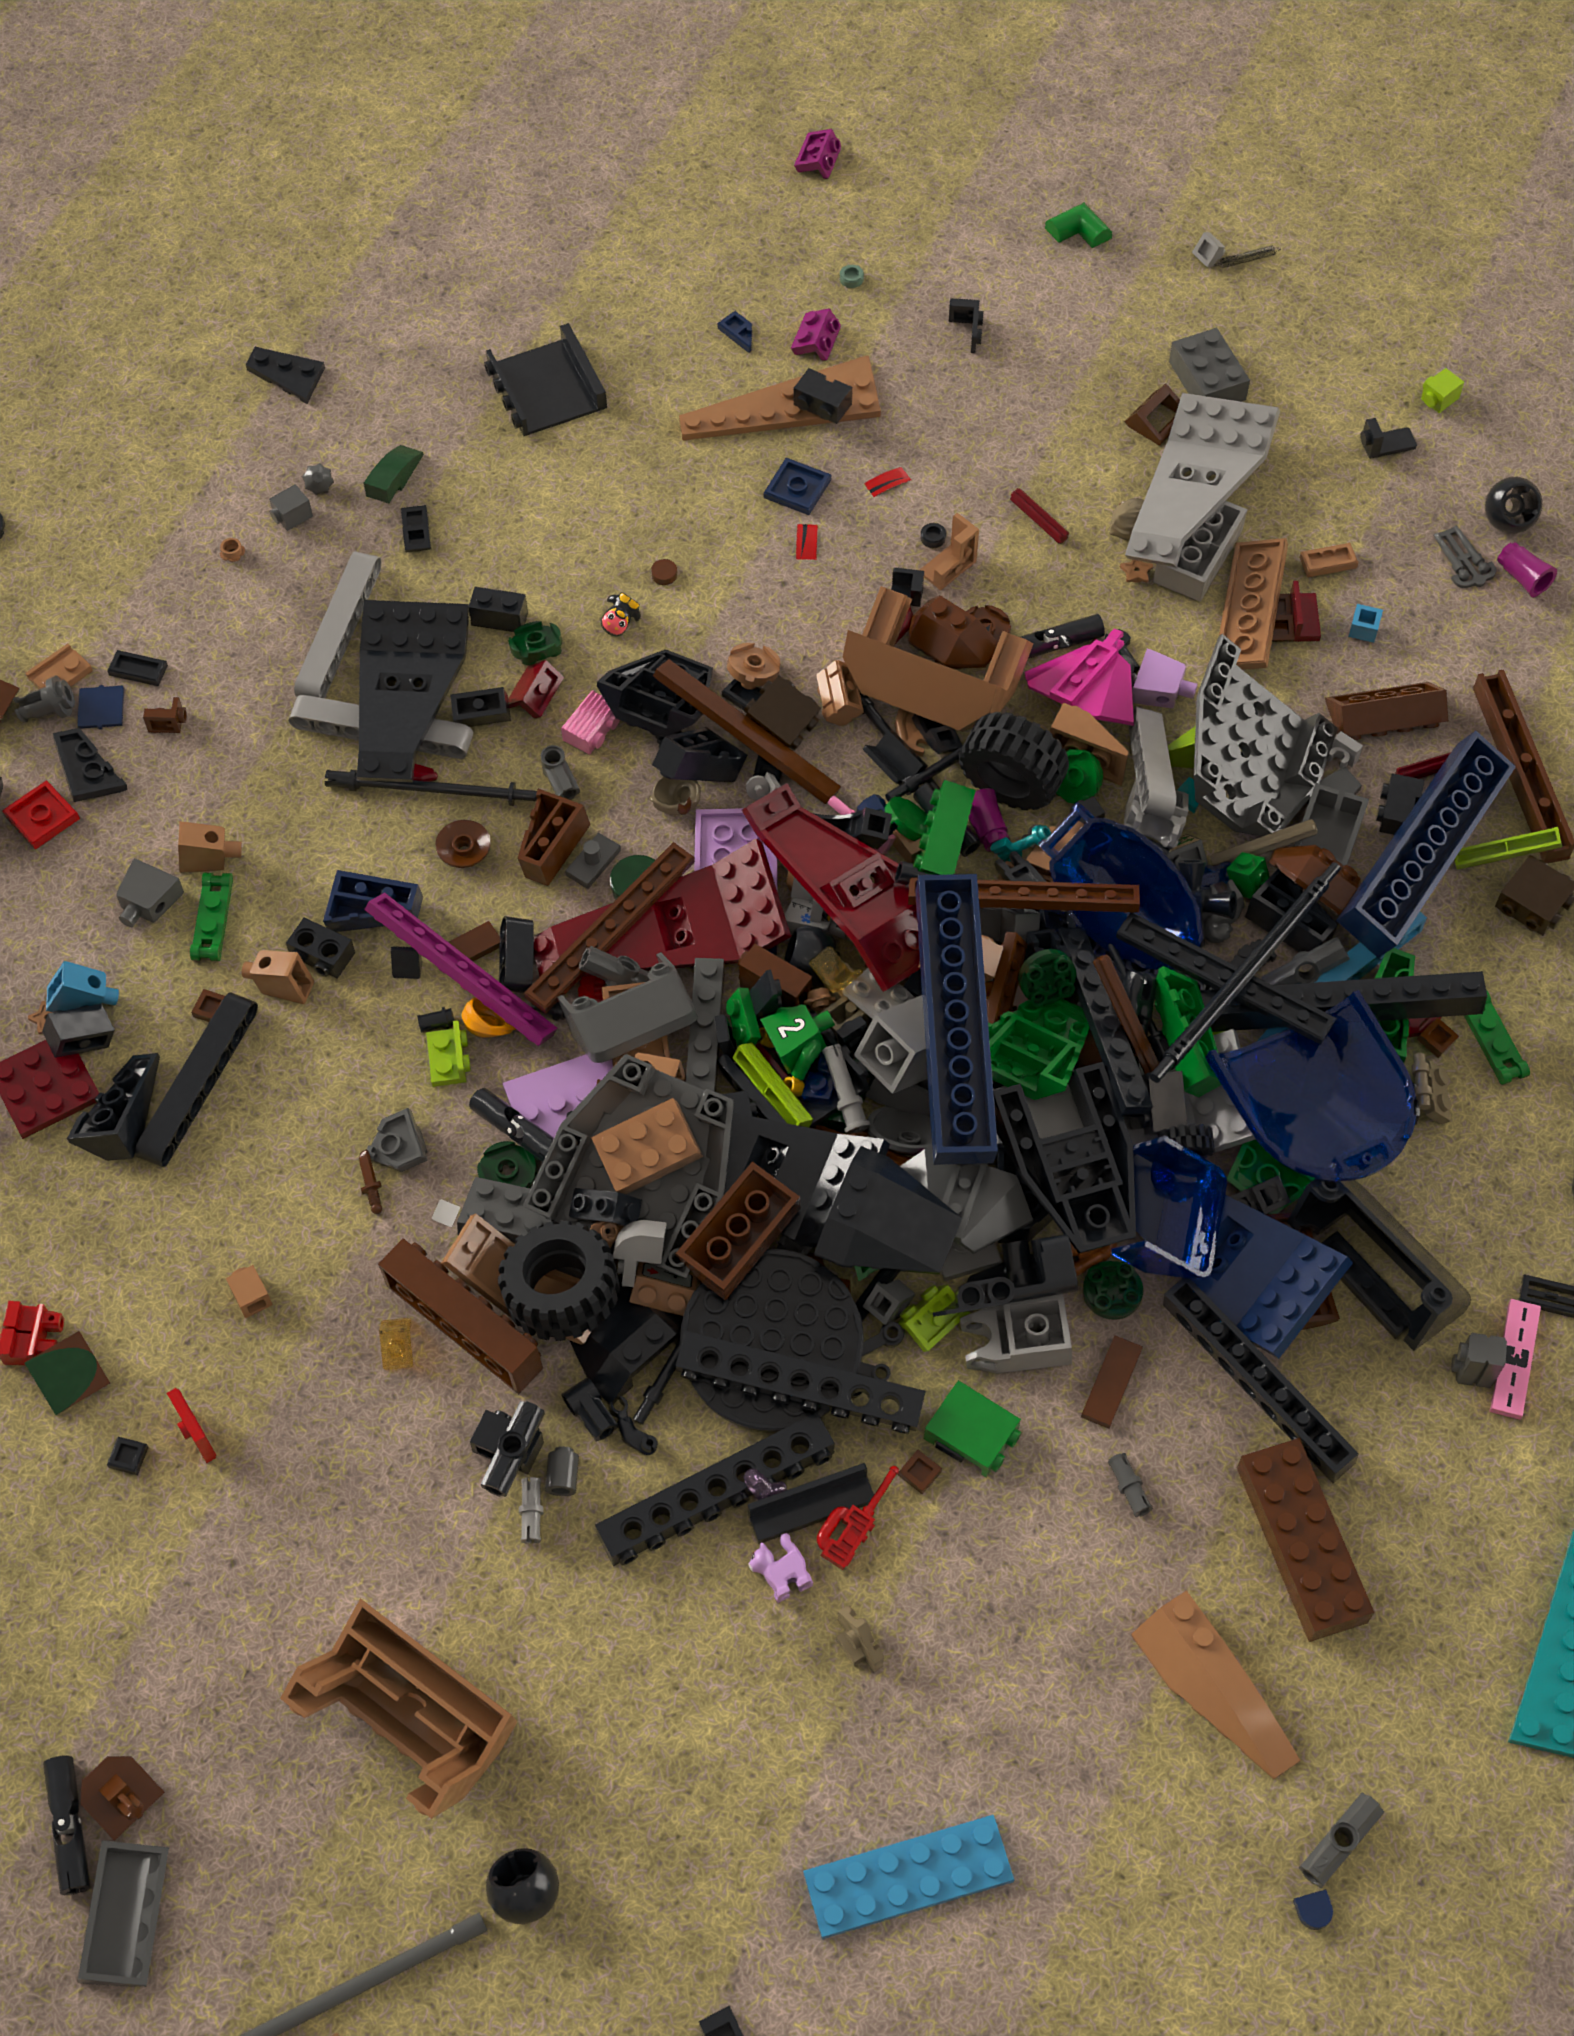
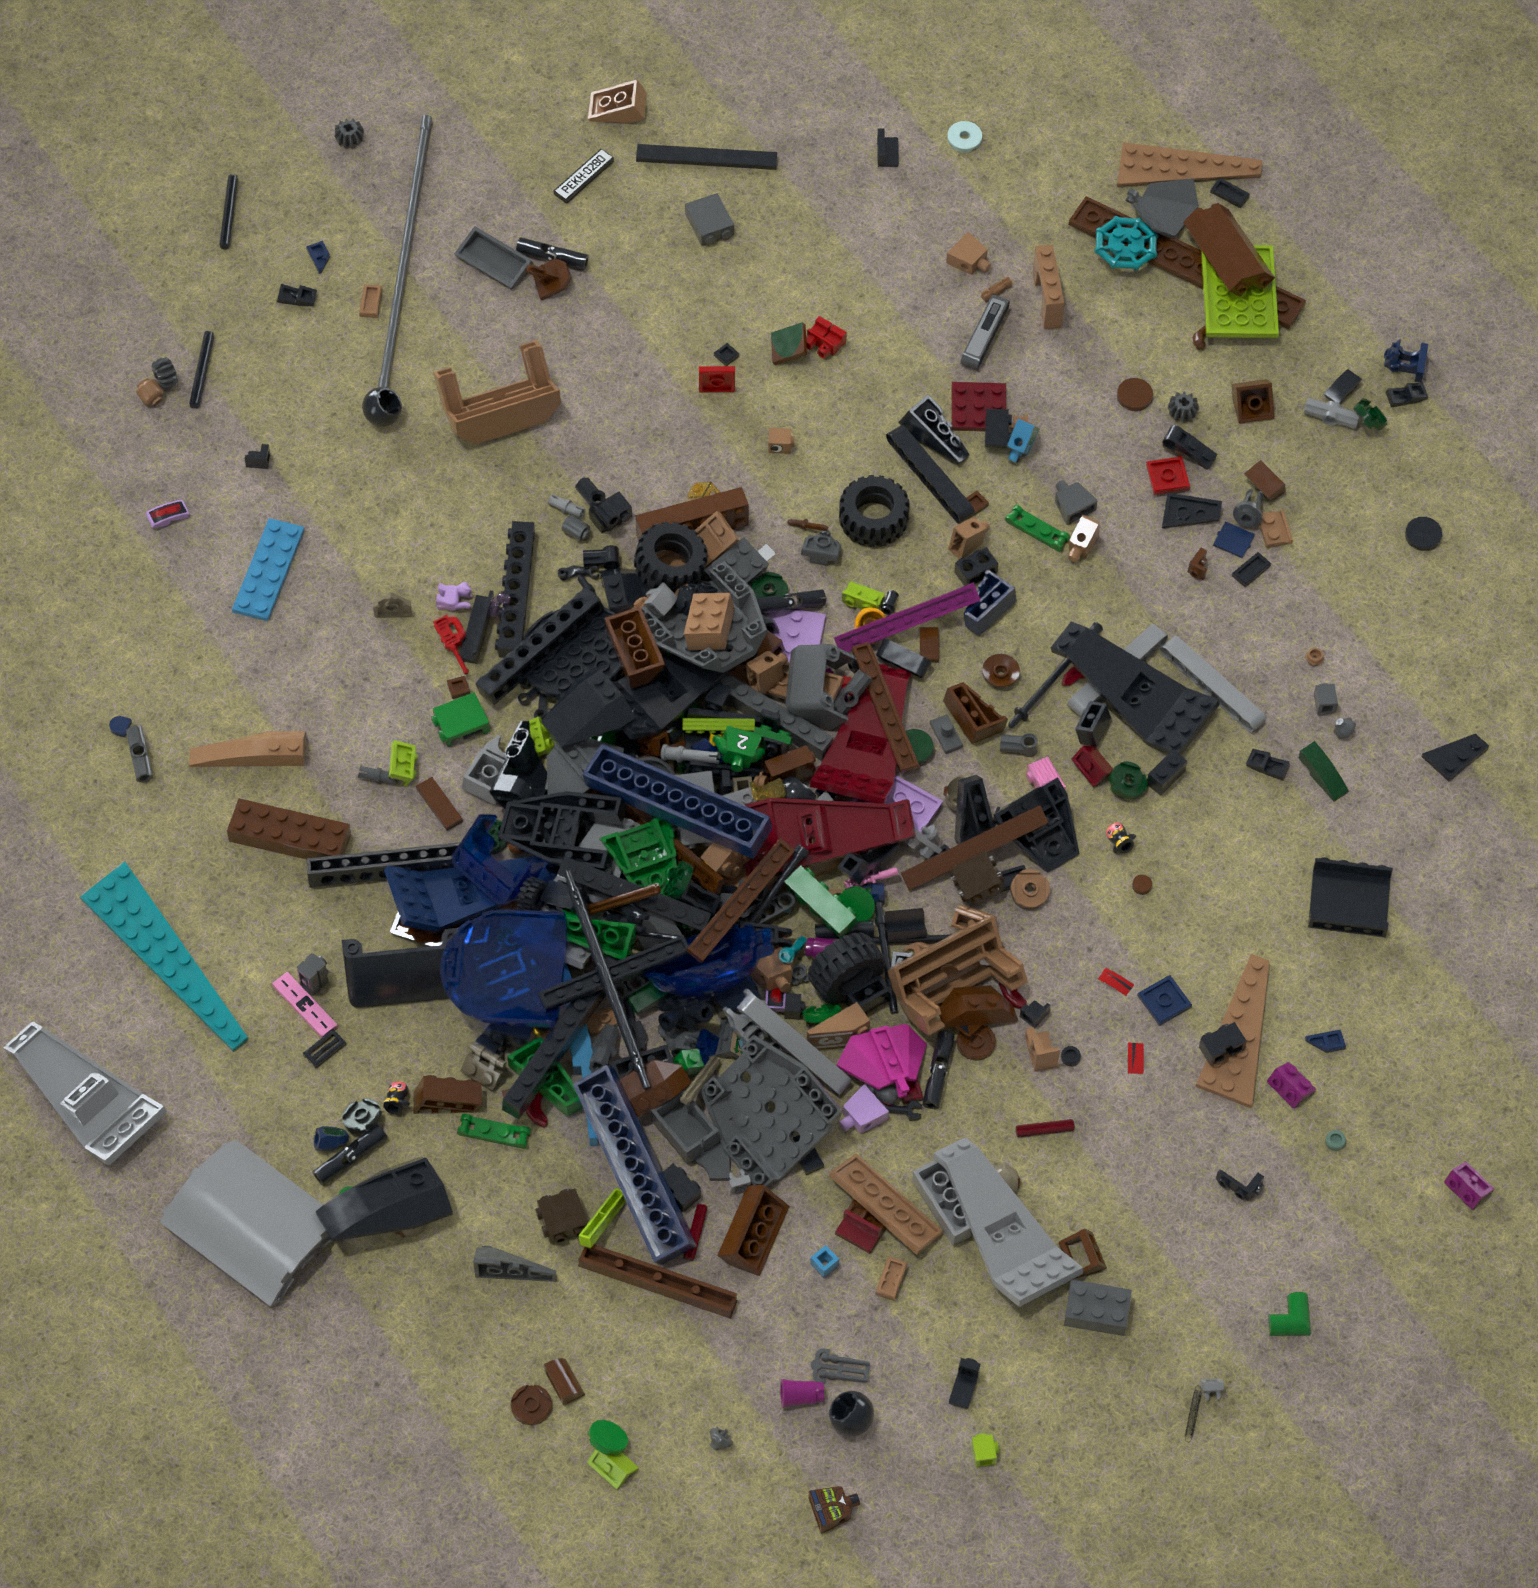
camera: 120 degrees right, 0 degrees up
(311, 1136) = (871, 530): none -> black tyre
(1094, 1455) = (402, 762): none -> lime bracket
(1502, 1107) = (447, 1093): none -> reddish brown wedge
(1545, 1165) = (396, 1098): none -> black animal

